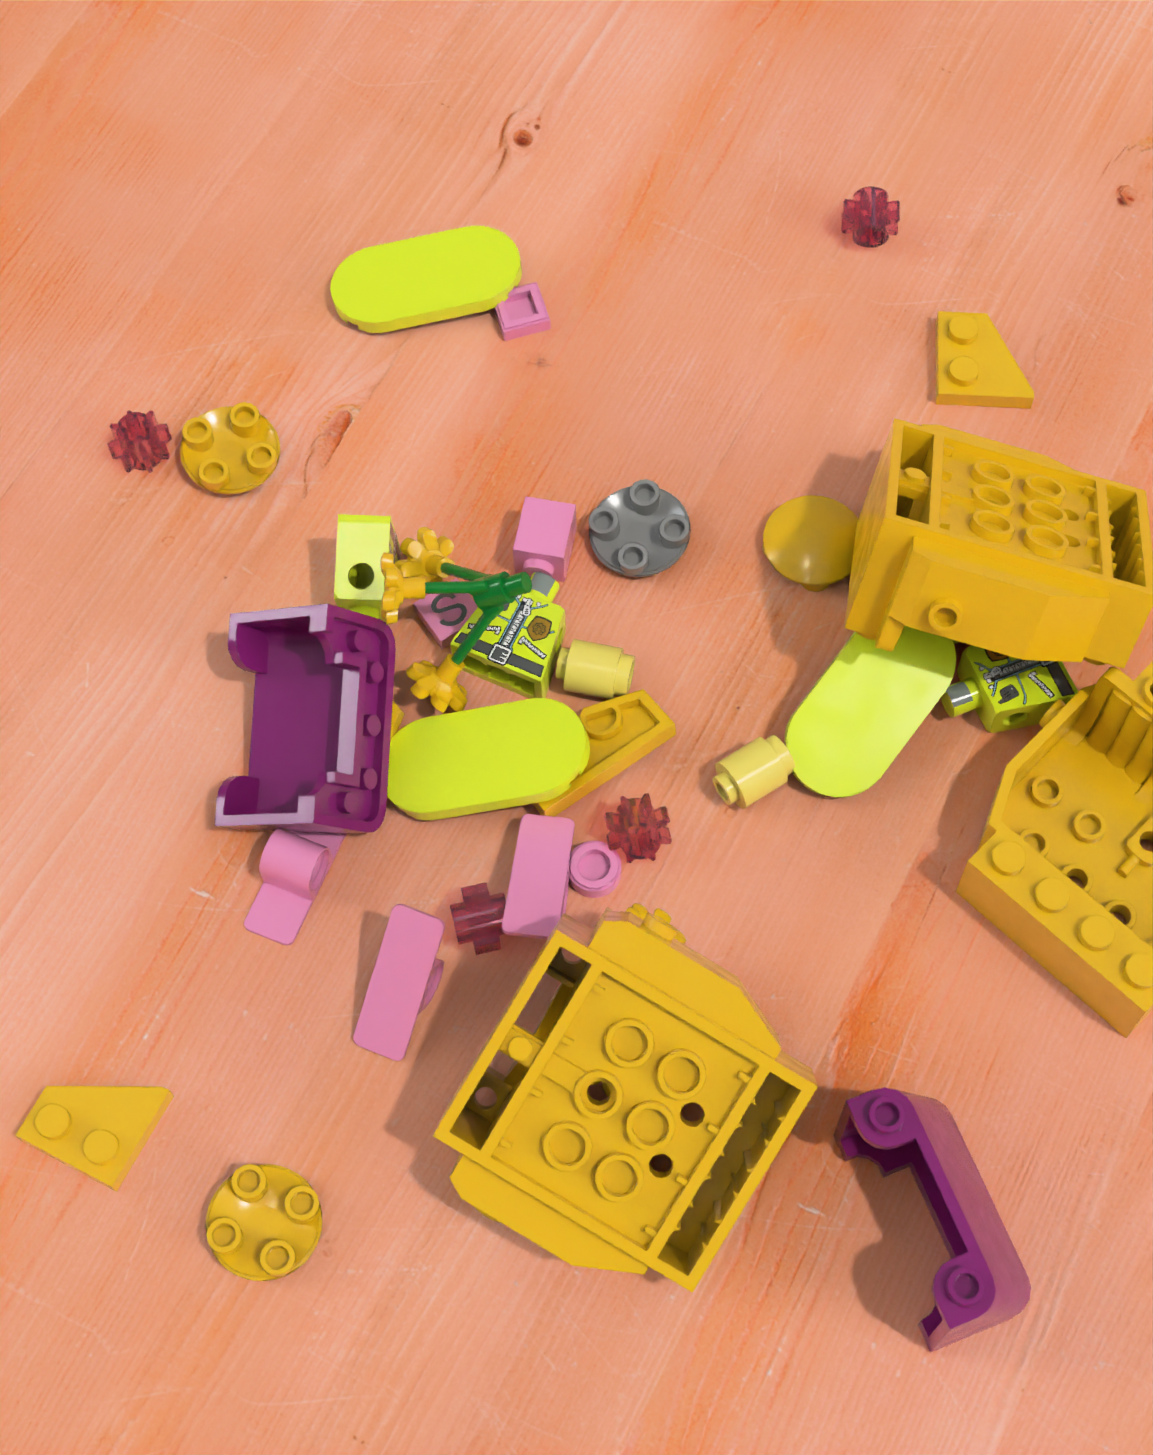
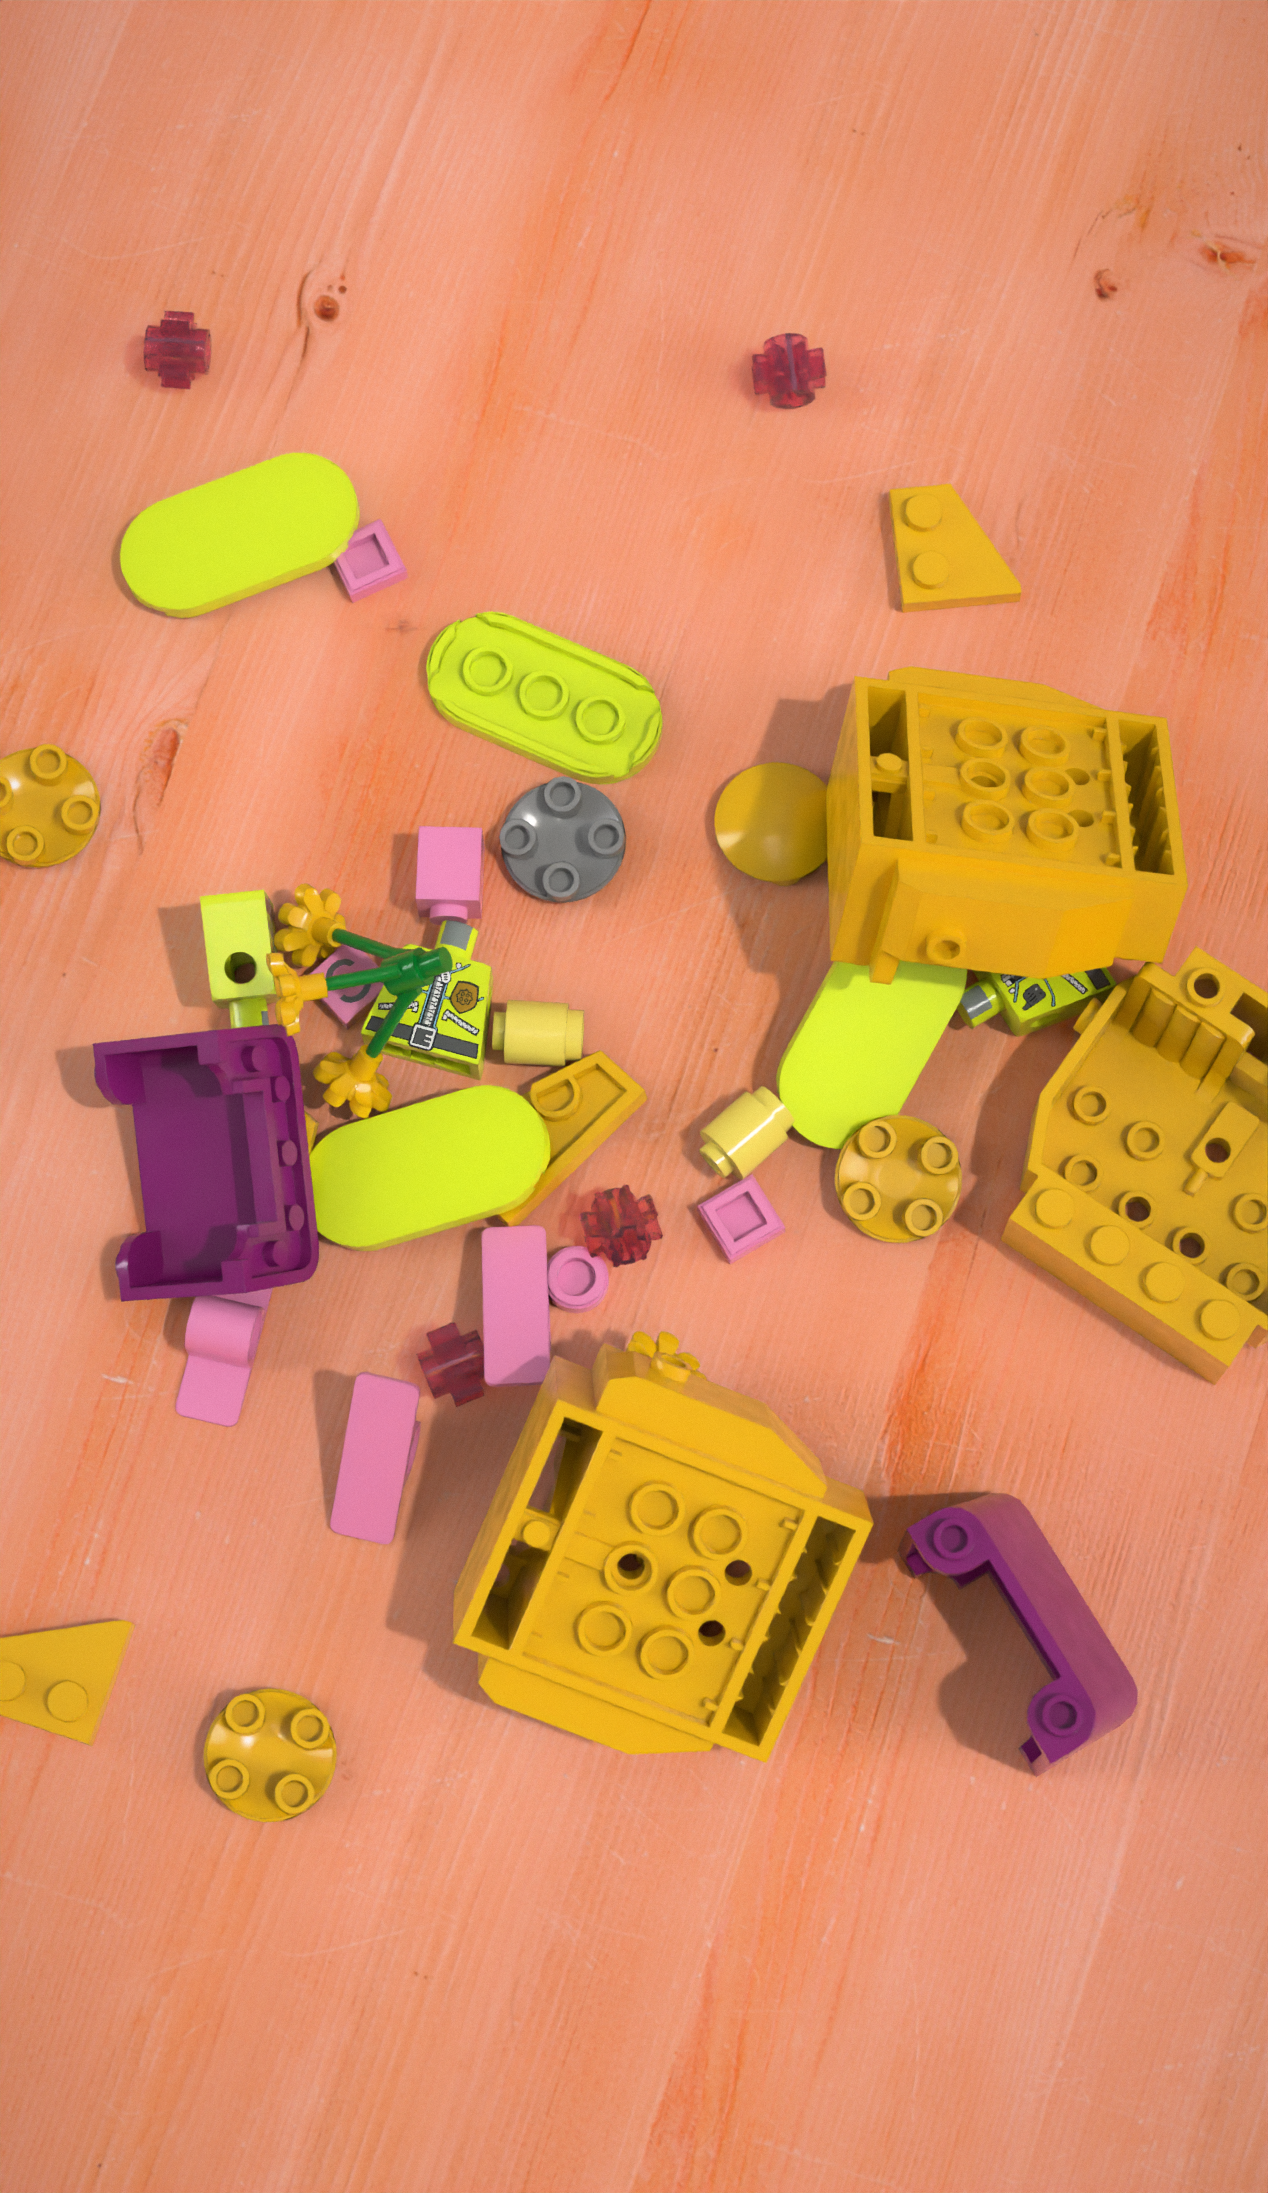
camera: 10 degrees left, 10 degrees up
(403, 144) = (177, 349): none -> clear pink gear
(643, 426) = (544, 698): none -> neon yellow tile
(739, 841) = (741, 1219): none -> bright pink tile
(876, 827) = (898, 1178): none -> yellow dish

